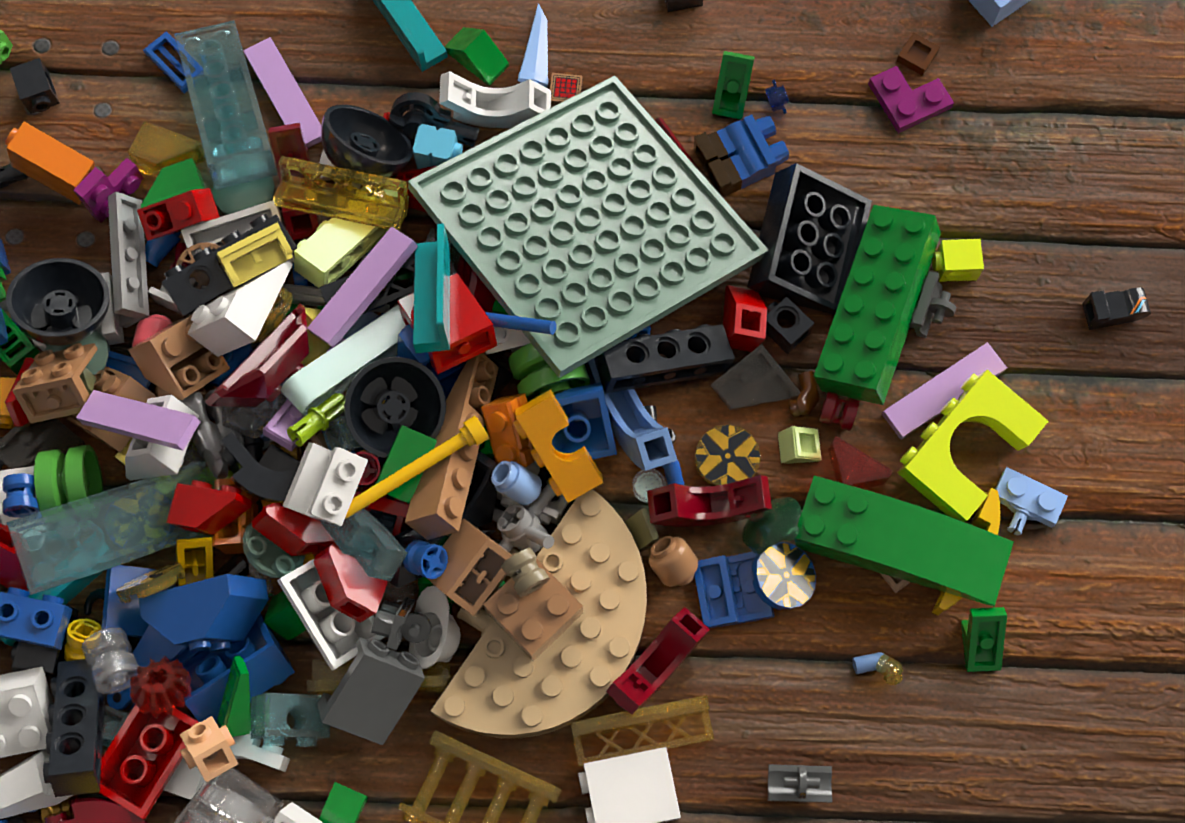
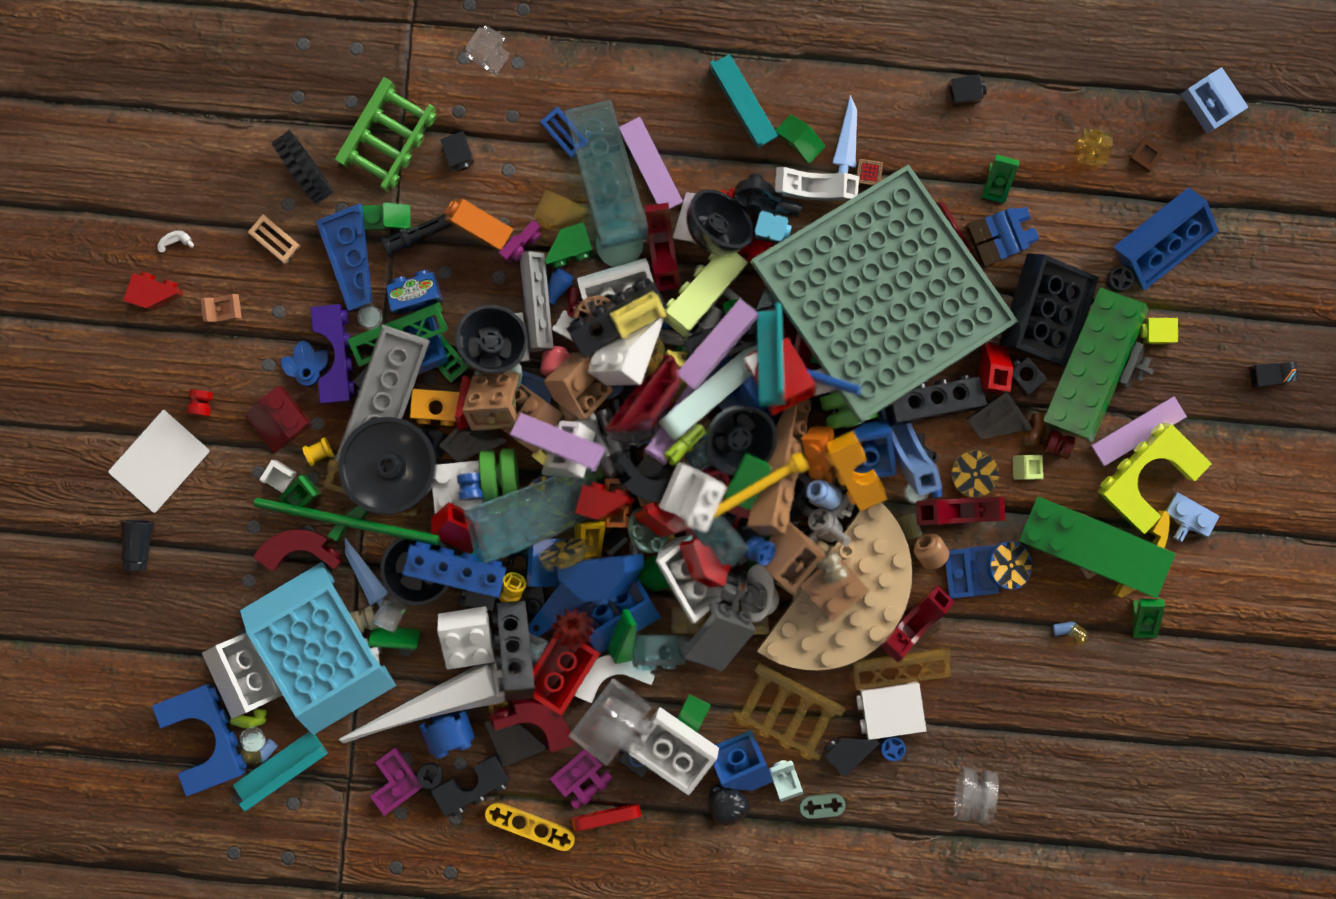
camera: 10 degrees right, 15 degrees up
(110, 659) = (537, 608): clear wheel -> none
(178, 213) = (576, 271): red slope -> none
(208, 748) = (607, 673): light nougat brick -> none
(341, 199) = (700, 265): clear yellow fence -> none
(772, 526) = (1005, 533): clear green dish -> none
(777, 97) = (1033, 189): clear blue plate -> none
(799, 783) = (1009, 711): dark grey hips -> none
(849, 43) = (1094, 147): none -> clear yellow brick
(856, 467) = (1066, 488): clear red slope -> none
(903, 193) = (1123, 276): none -> black wheel
(908, 106) = (1134, 199): magenta plate -> none
(955, 147) = (1167, 238): none -> blue slope

